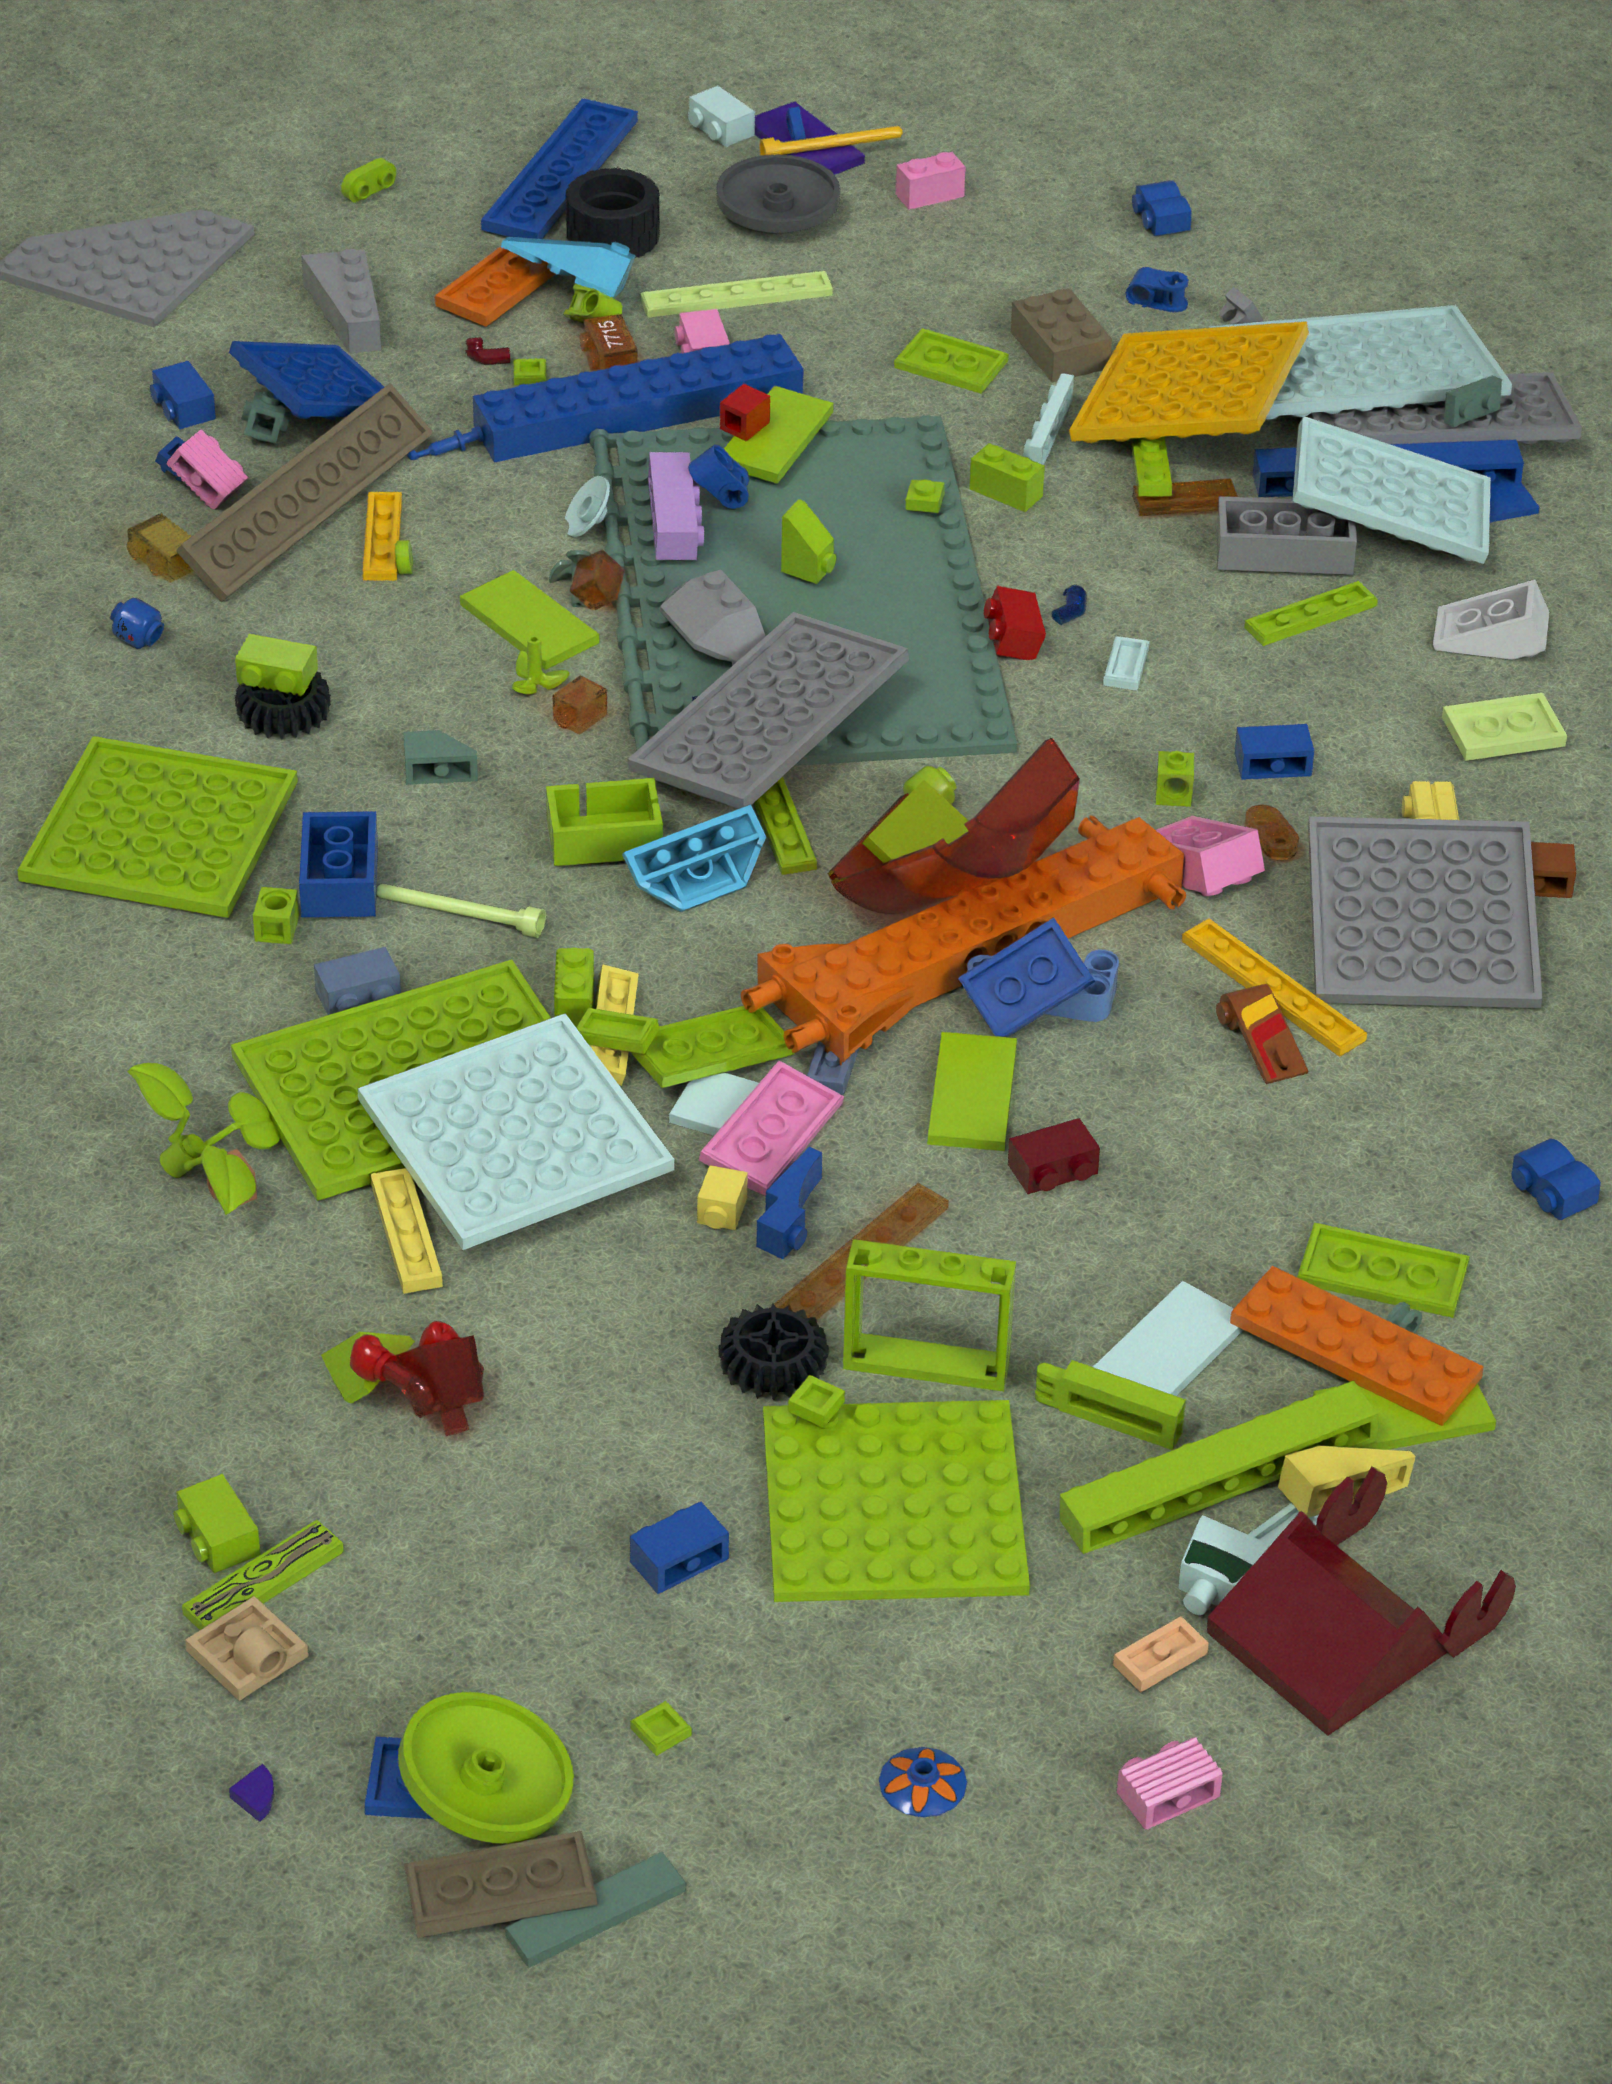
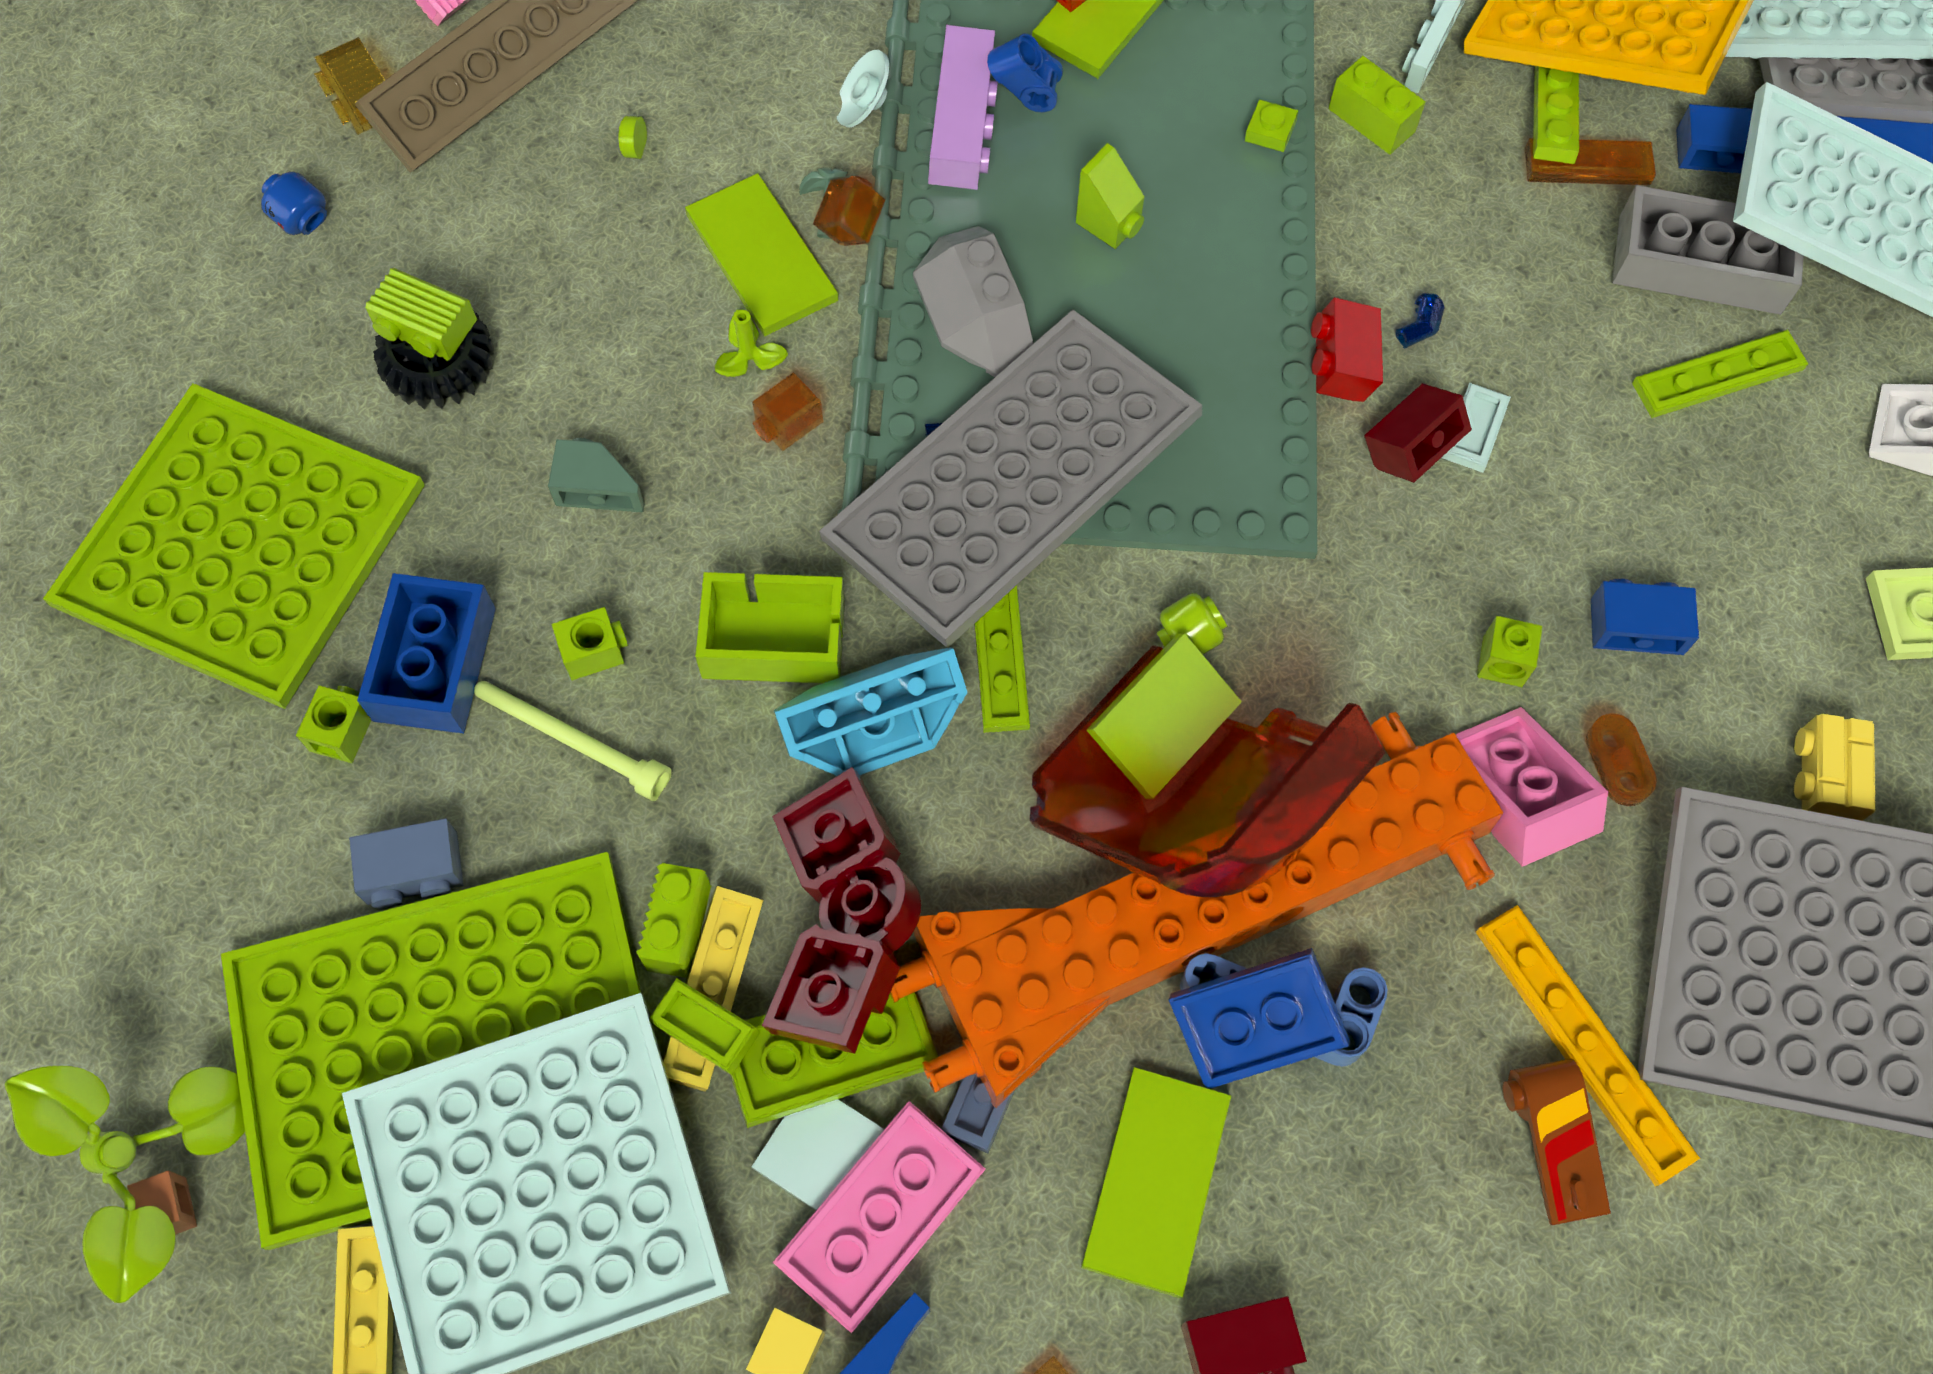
camera: 10 degrees right, 25 degrees up
(381, 534) = (618, 93): yellow tile -> none
(461, 850) = (576, 631): none -> lime brick
(709, 956) = (865, 915): none -> dark red plate
(1079, 663) = (1418, 432): none -> dark red brick

